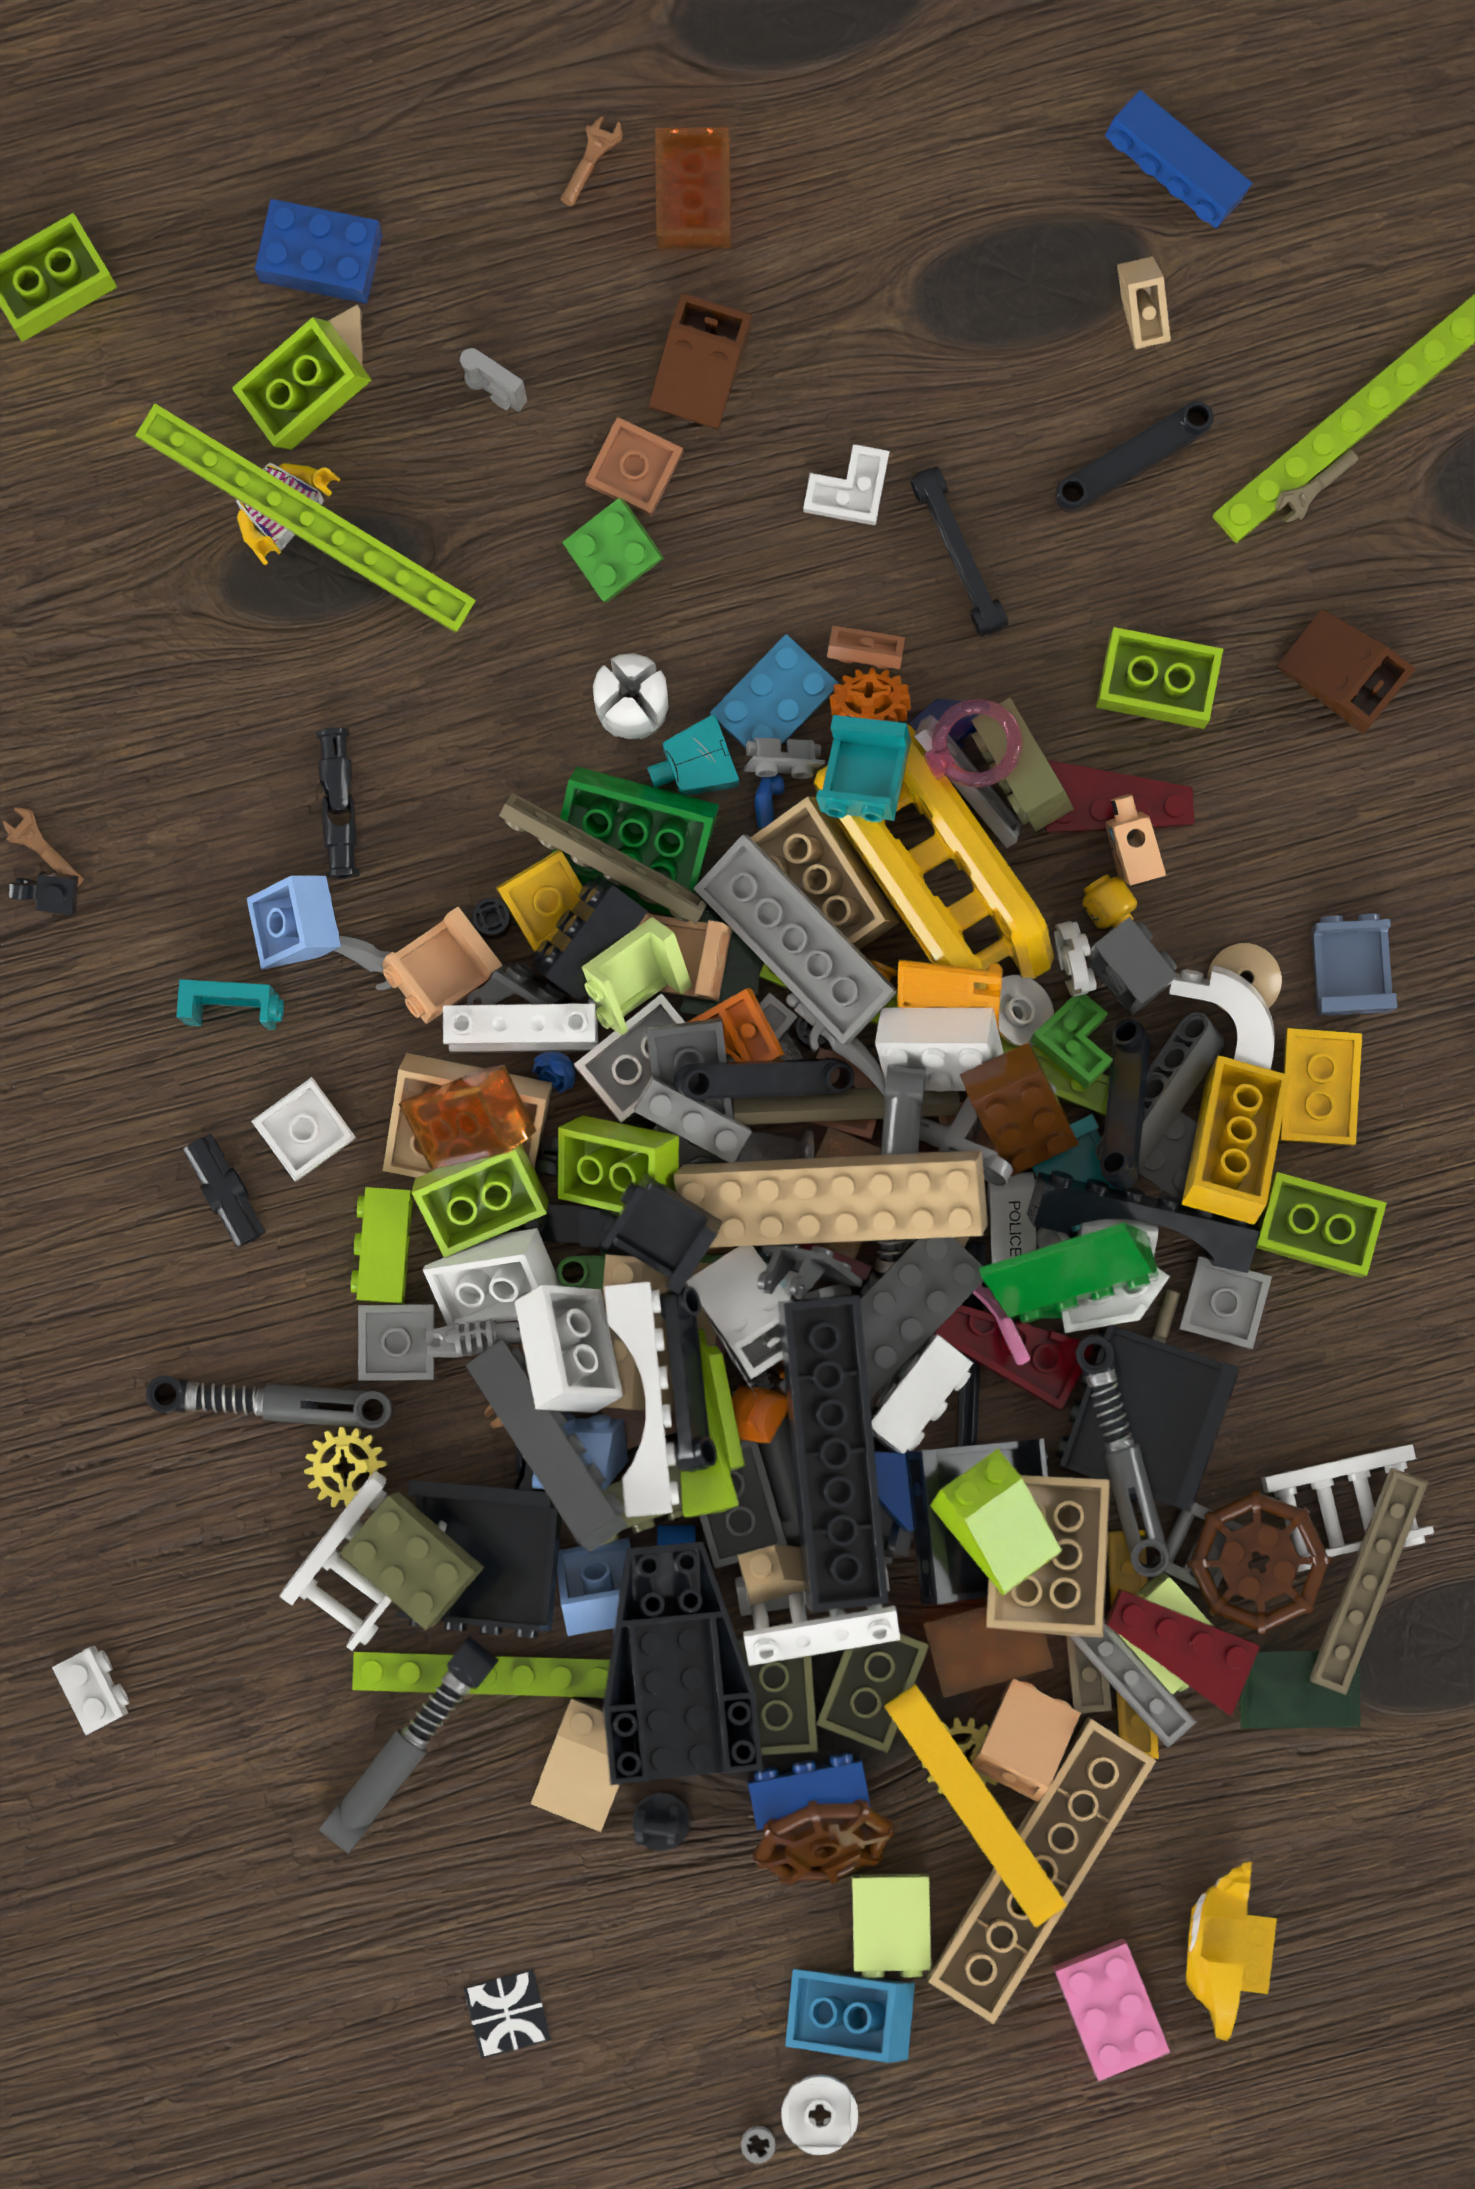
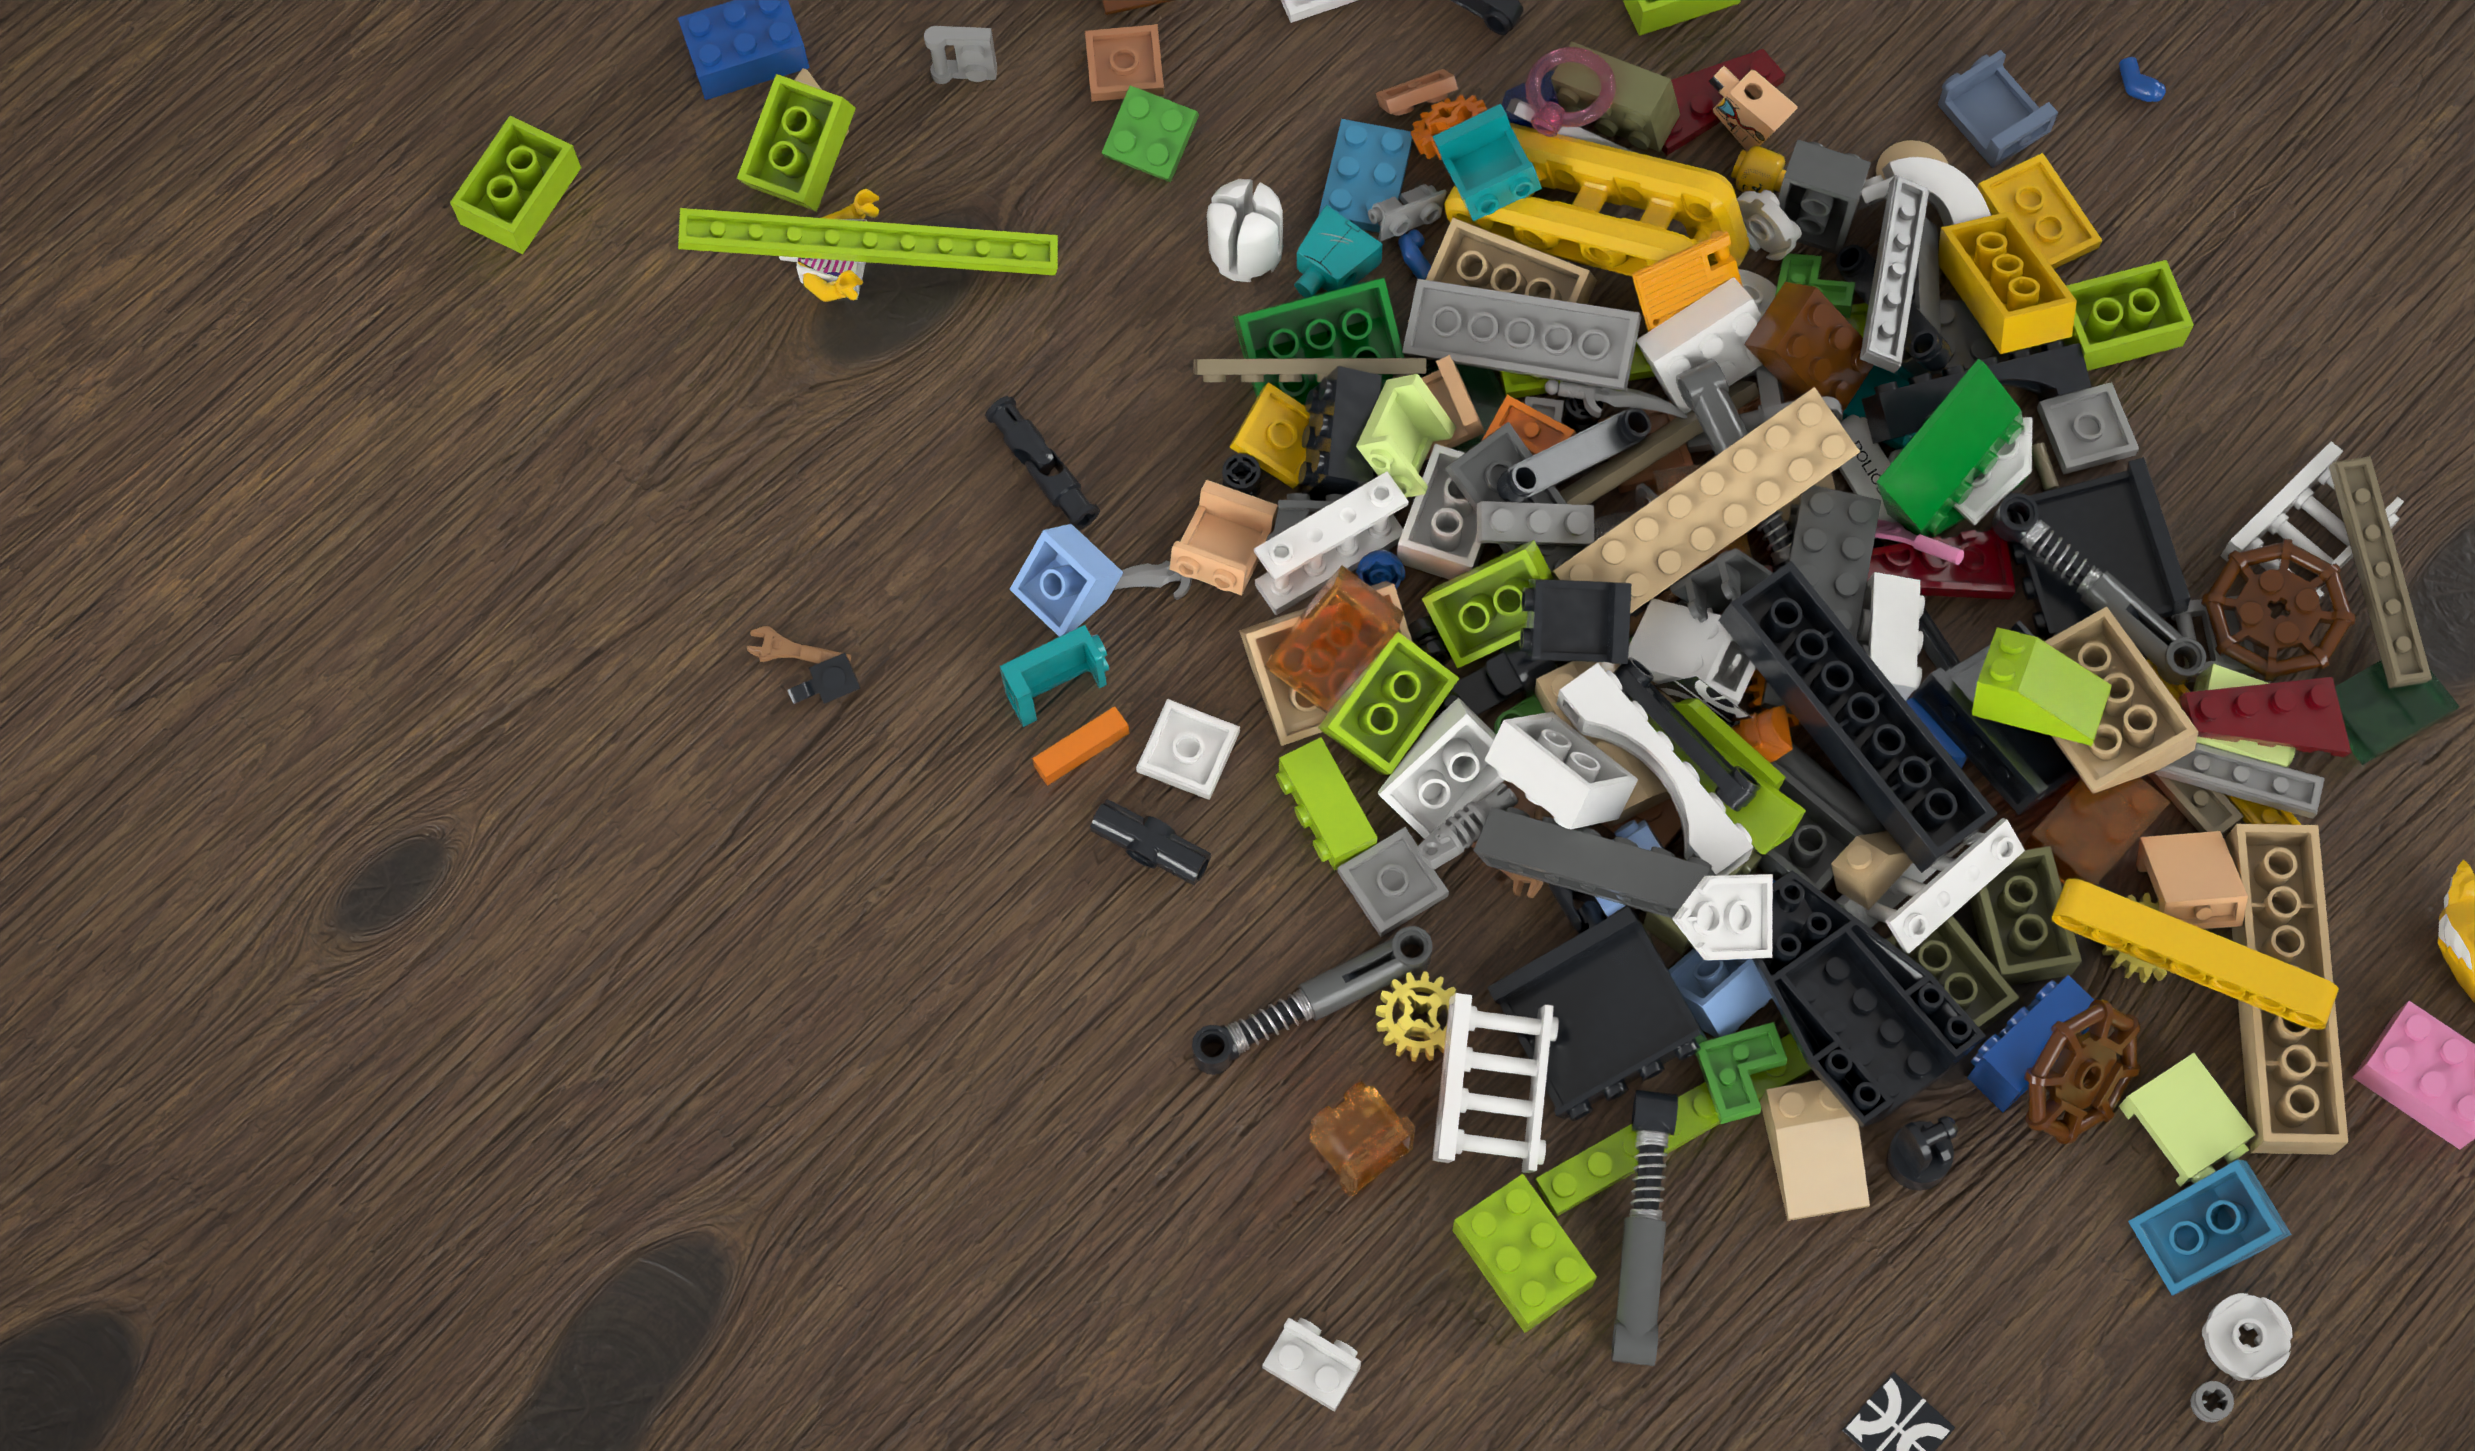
camera: 30 degrees left, 15 degrees down
(220, 1073) = (1081, 745): none -> orange piece
(233, 1539) = (1361, 1137): none -> clear orange piece
(304, 1706) = (1524, 1253): none -> lime brick
(411, 1560) = (1542, 1041): olive brick -> none
(557, 1658) = (1731, 1061): none -> bright green plate
(609, 1562) = (1729, 917): none -> white tile
(1139, 1080) = (1894, 274): none -> light grey tile

